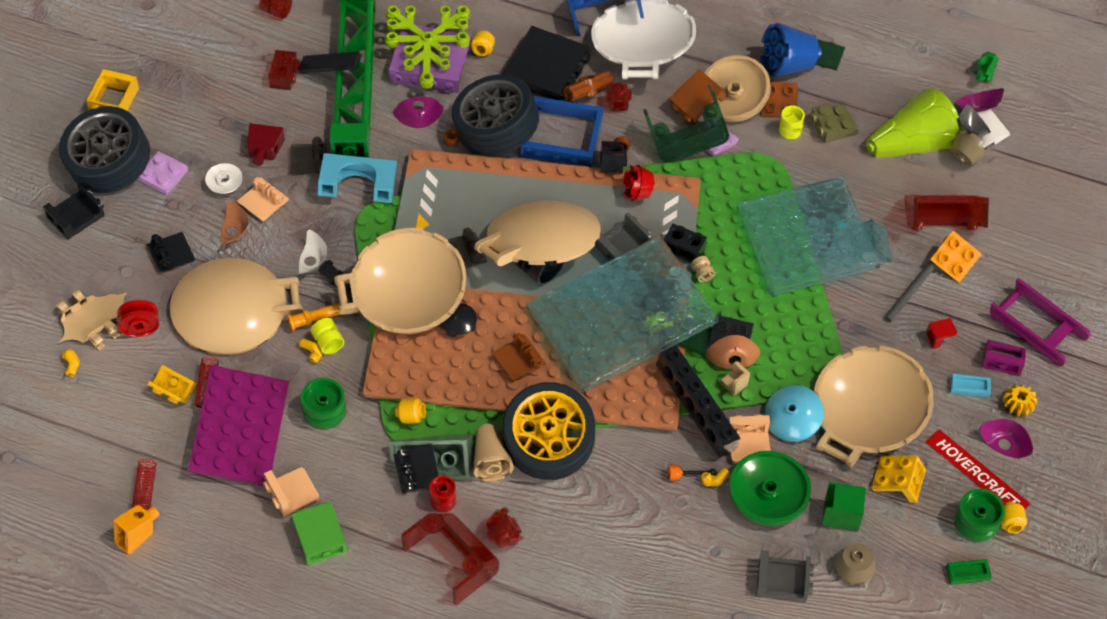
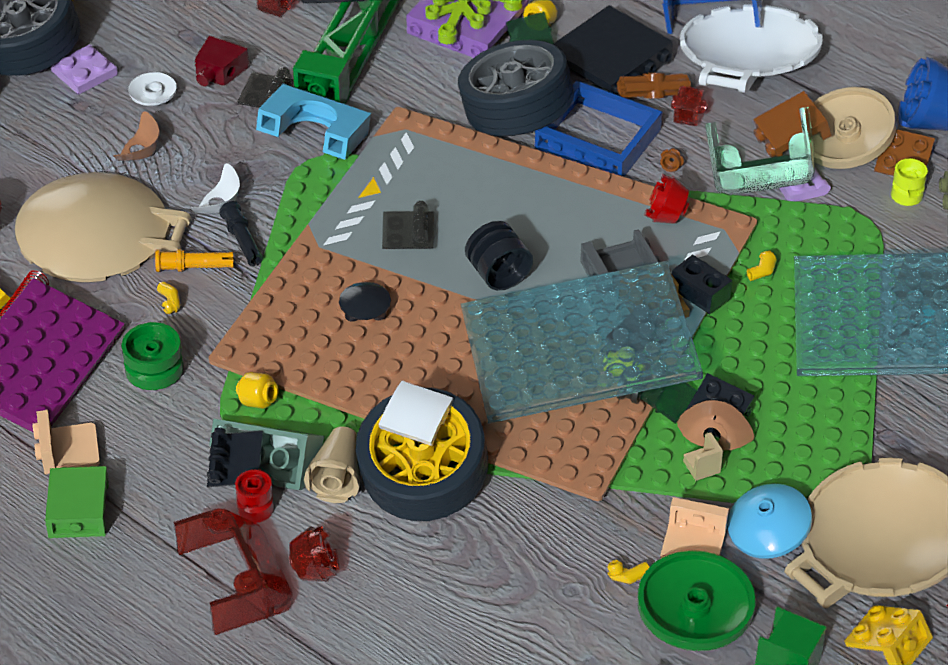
camera: 20 degrees right, 10 degrees down
(170, 251) = (50, 152): black hinge -> none
(262, 199) = (189, 122): light nougat hinge -> none
(327, 336) = (194, 284): neon yellow wheel -> none
(405, 281) = (313, 240): tan dish -> none
(410, 116) = (435, 76): magenta piece -> none
(451, 137) = (453, 106): dark orange plate -> none
(483, 62) = (530, 28): none -> clear green piece
(518, 357) = (424, 362): dark orange hinge -> none
(540, 233) = (510, 222): tan dish -> none
(540, 405) = (416, 413): none -> white slope
(613, 157) = (648, 167): black brick -> none
(675, 472) = (577, 551): hinge -> none
(698, 401) = (638, 470): black brick -> none
(703, 270) = (714, 320): tan wheel -> none
(720, 213) = (765, 267): none -> yellow arm

